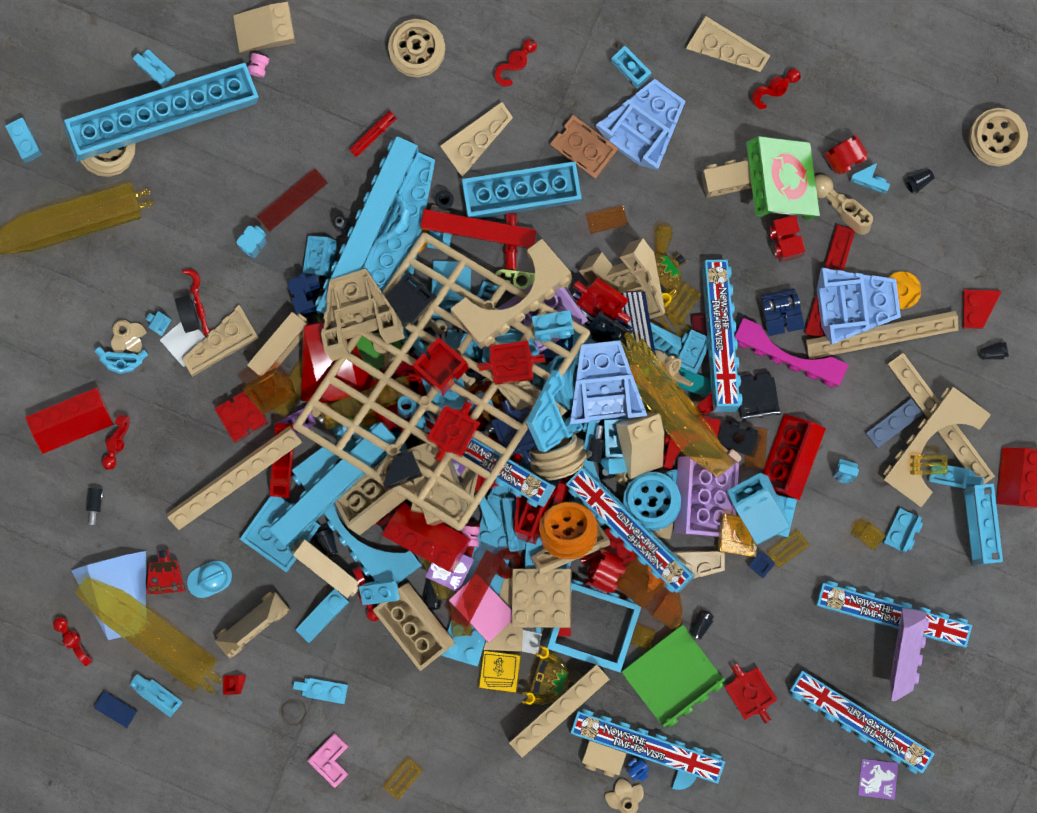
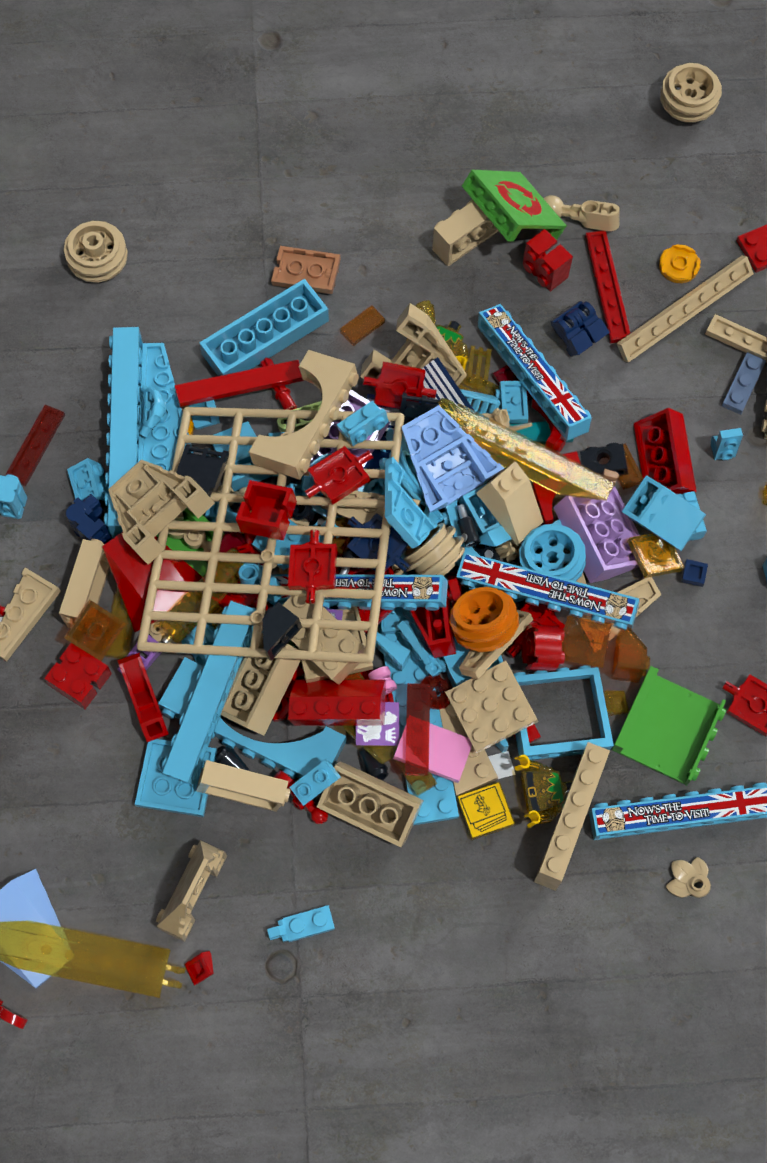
camera: 25 degrees left, 15 degrees down
(115, 709) = (78, 1063): dark blue tile -> none
(156, 695) = (117, 1022): medium azure hinge -> none
(164, 575) = (68, 884): torso -> none
(209, 579) = (120, 866): medium azure piece -> none
(234, 478) = (98, 741): tan plate -> none
(322, 615) = (264, 842): medium azure slope -> none
(325, 761) = (343, 1002): bright pink tile -> none
(340, 227) = (95, 441): black piece -> none
(373, 133) = (89, 347): red axle -> none
(413, 766) = (435, 1000): clear yellow tile -> none
(444, 195) = (191, 371): black cone -> none
(473, 140) = (194, 308): tan wing -> none
(517, 62) = (201, 225): red piece -> none
(603, 758) = (644, 847): tan brick -> none
(630, 67) = (314, 180): medium azure brick -> none
(637, 769) = (687, 841): blue gear -> none
(644, 124) = (353, 226): light blue wedge -> none
(683, 780) = (739, 830): medium azure tile -> none
(702, 623) = (668, 659): black cone -> none
(722, 44) = (394, 128): tan wing -> none
(753, 336) = (652, 362): dark pink arch -> none
(758, 395) = (604, 416): black plate -> none
(775, 558) = (718, 529): clear yellow tile -> none
(776, 88) = (461, 142): red piece -> none
(846, 154) = (560, 166): red brick -> none
(854, 303) = (642, 288): light blue wedge -> none
(865, 179) = (591, 183): medium azure slope -> none
(919, 180) = (637, 166): black cone -> none

